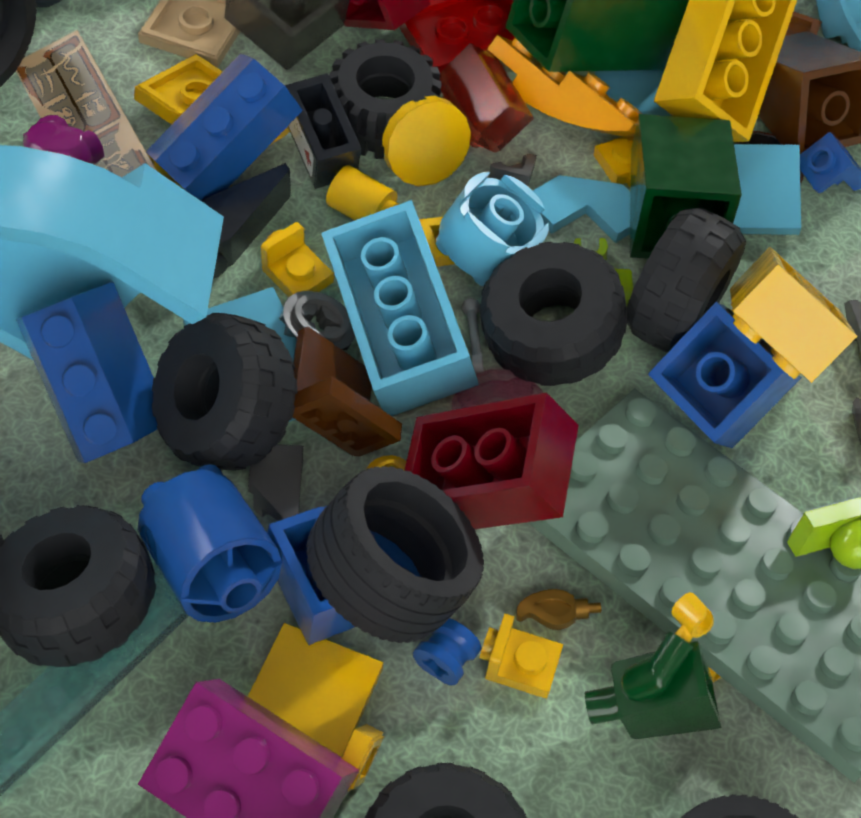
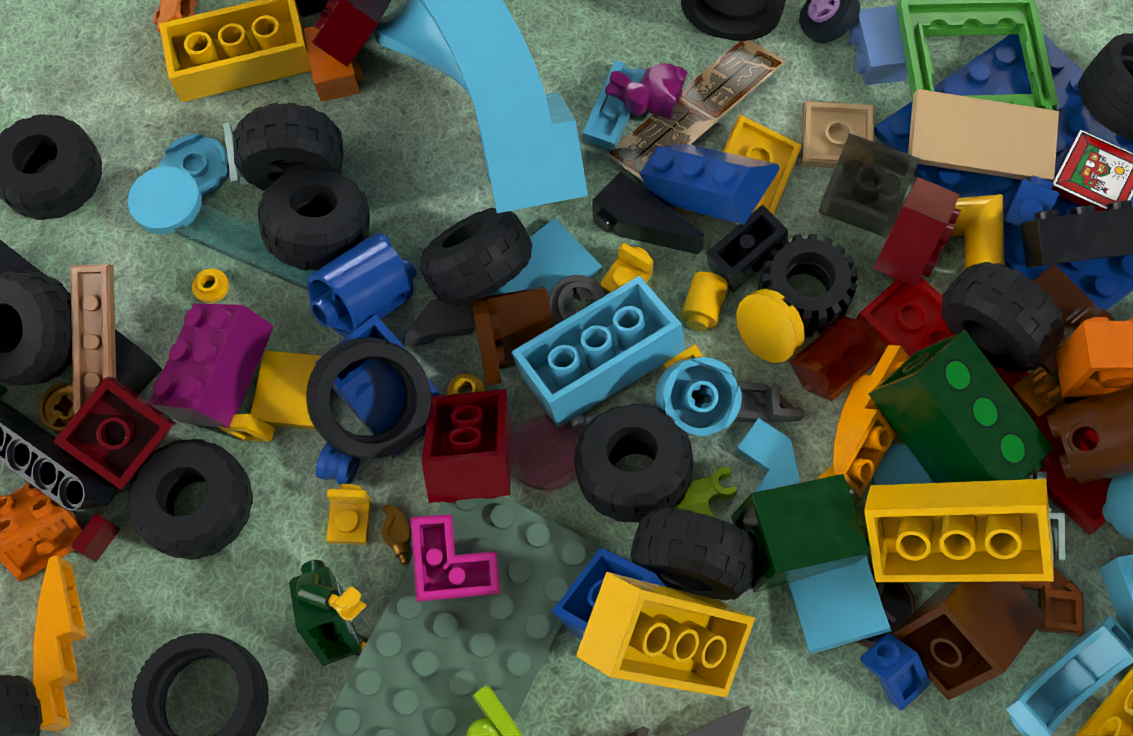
camera: 85 degrees right, 10 degrees up
(92, 371) = (457, 175): blue slope -> none
(105, 790) = (214, 293): none -> yellow plate
(646, 532) = (442, 573): none -> dark pink brick

